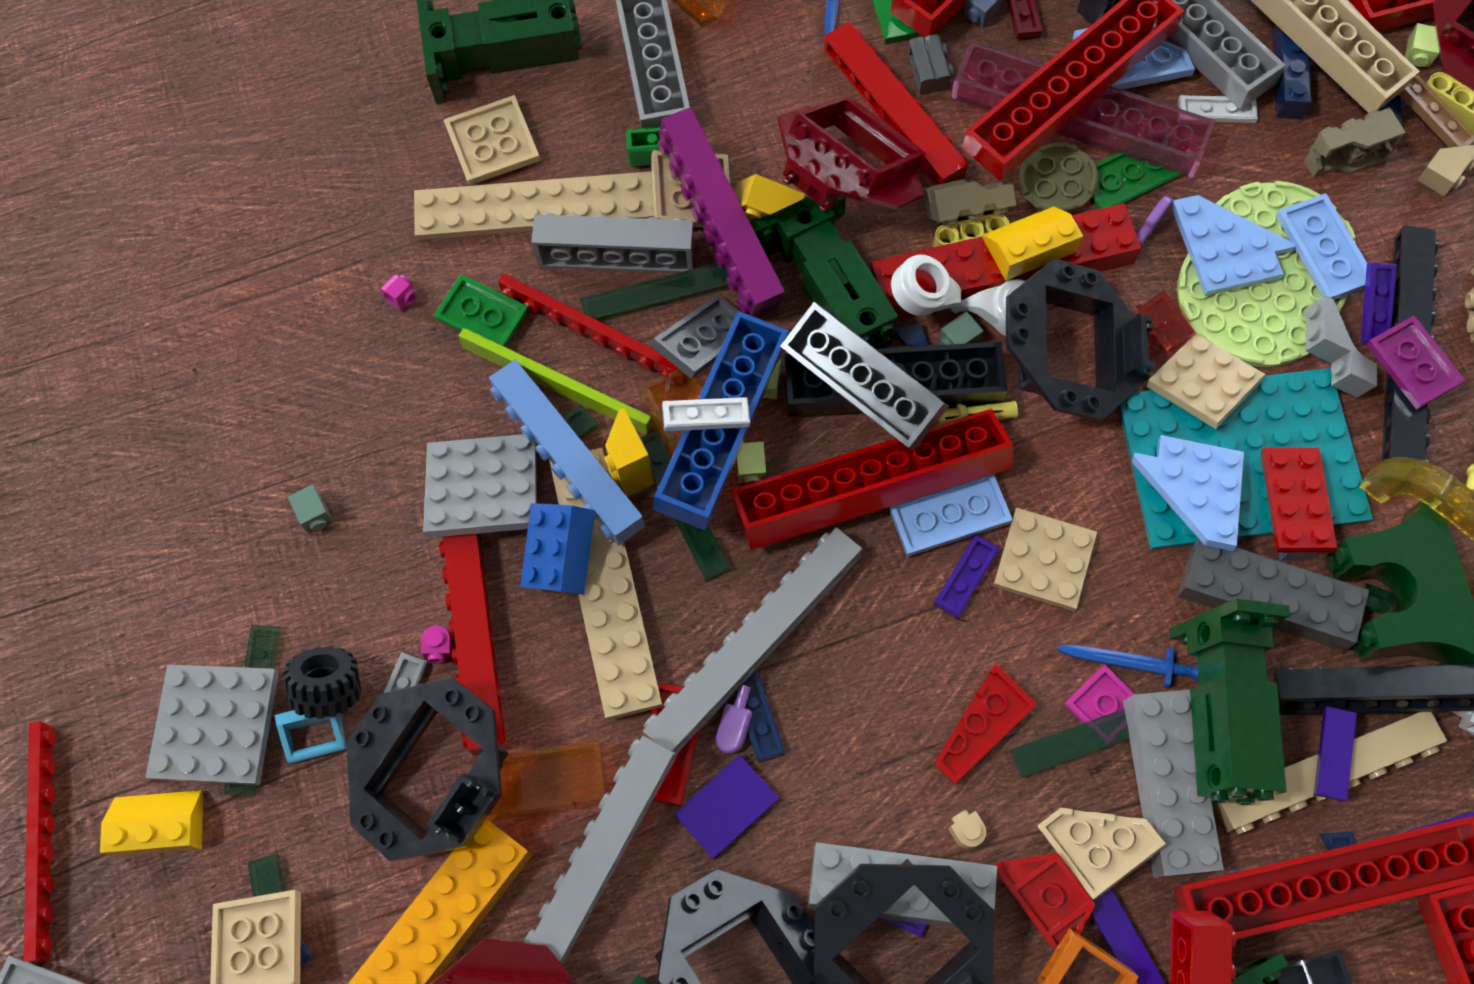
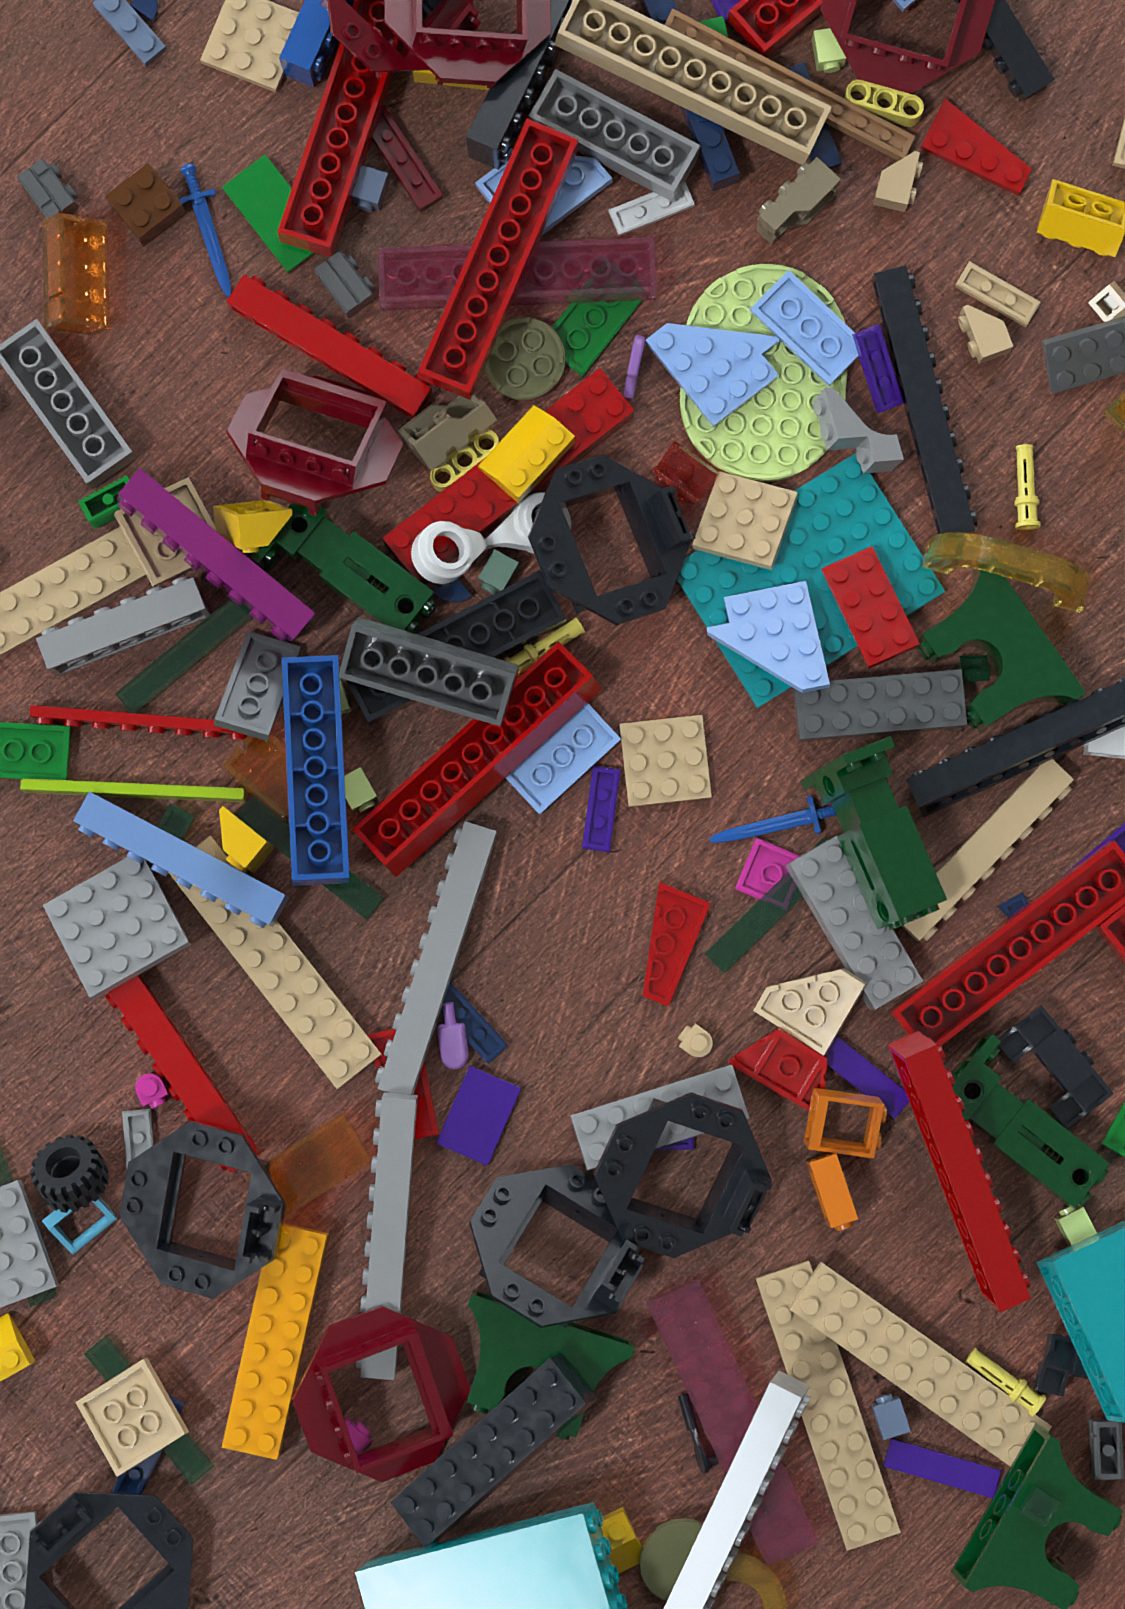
camera: 25 degrees left, 15 degrees up
(557, 548) = (220, 957): blue brick -> none
(705, 414) = (301, 779): white tile -> none
(1335, 754) = (982, 836): dark purple tile -> none
(1415, 362) = (930, 422): magenta plate -> none

